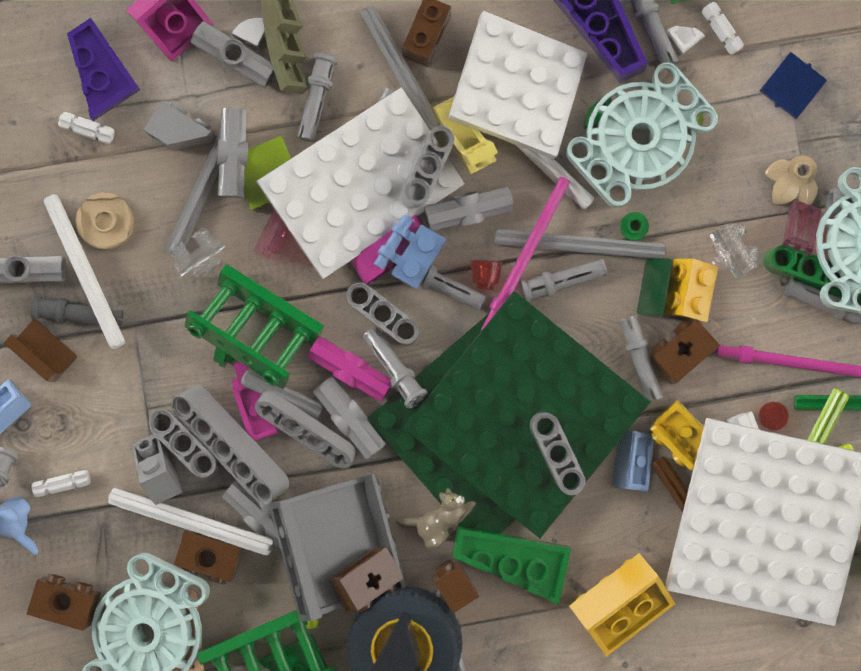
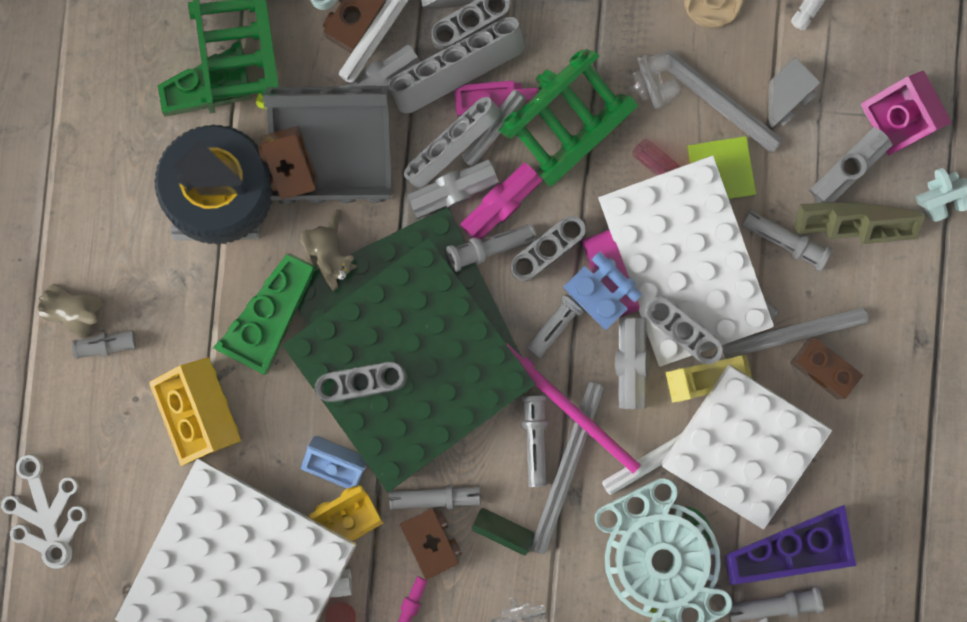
camera: 115 degrees right, 0 degrees up
(101, 71) = (863, 32): dark purple wing -> none
(232, 152) = (749, 139): light grey piece -> none
(250, 31) = (871, 190): white tile -> none
(454, 585) = (259, 248): reddish brown brick -> none
(485, 273) = (562, 363): clear red hat -> none
(625, 228) = (561, 528): green plate -> none
(671, 481) = (305, 494): reddish brown axle -> none
(690, 289) = (491, 568): yellow bracket -> none

